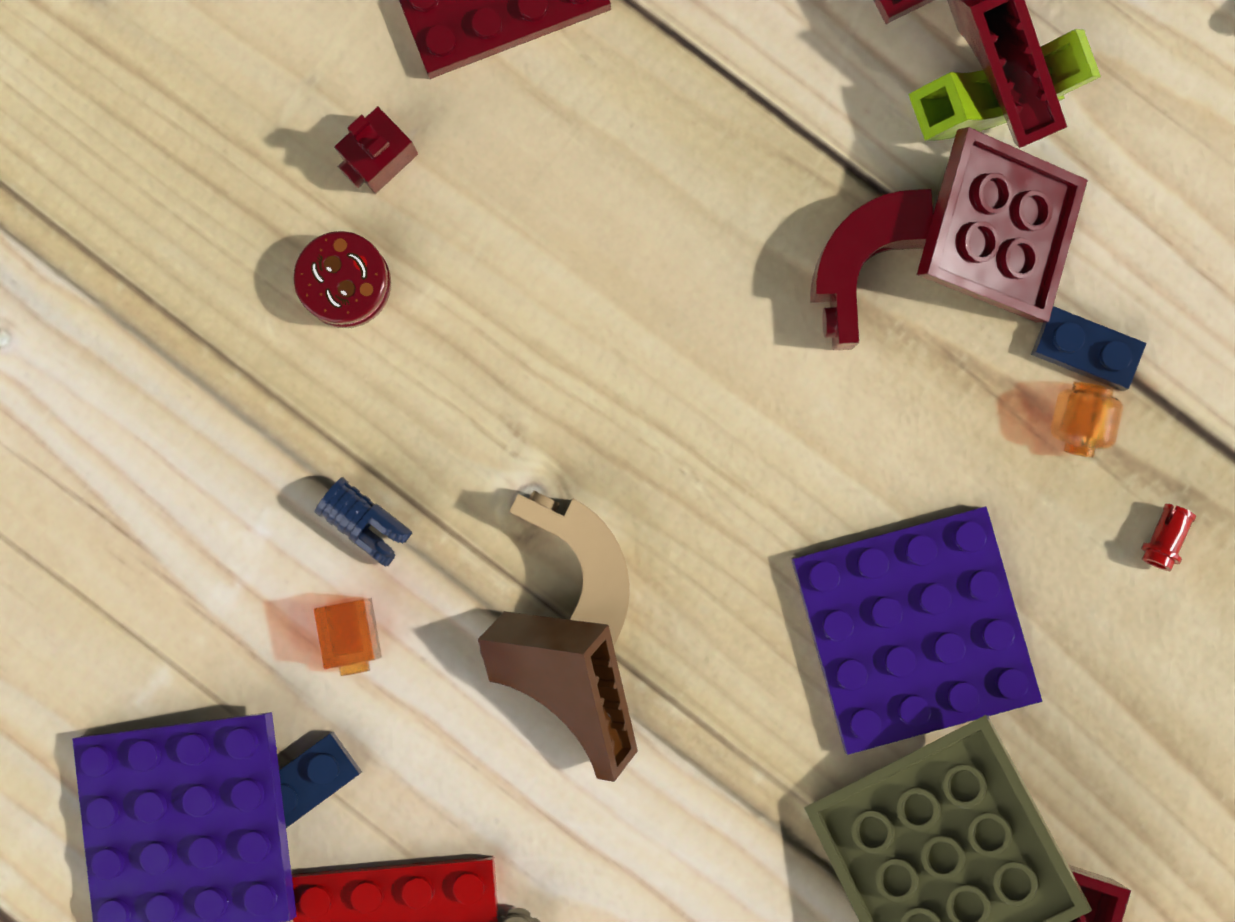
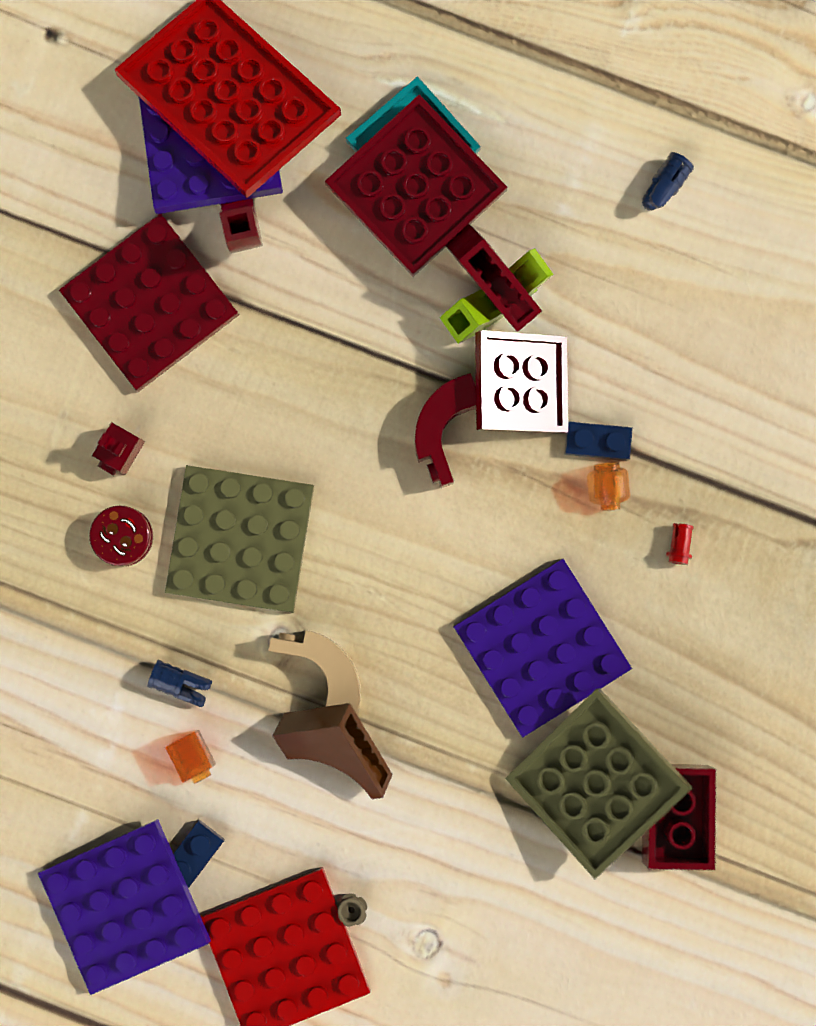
camera: 25 degrees left, 0 degrees up
(514, 336) = (239, 539): none -> olive plate

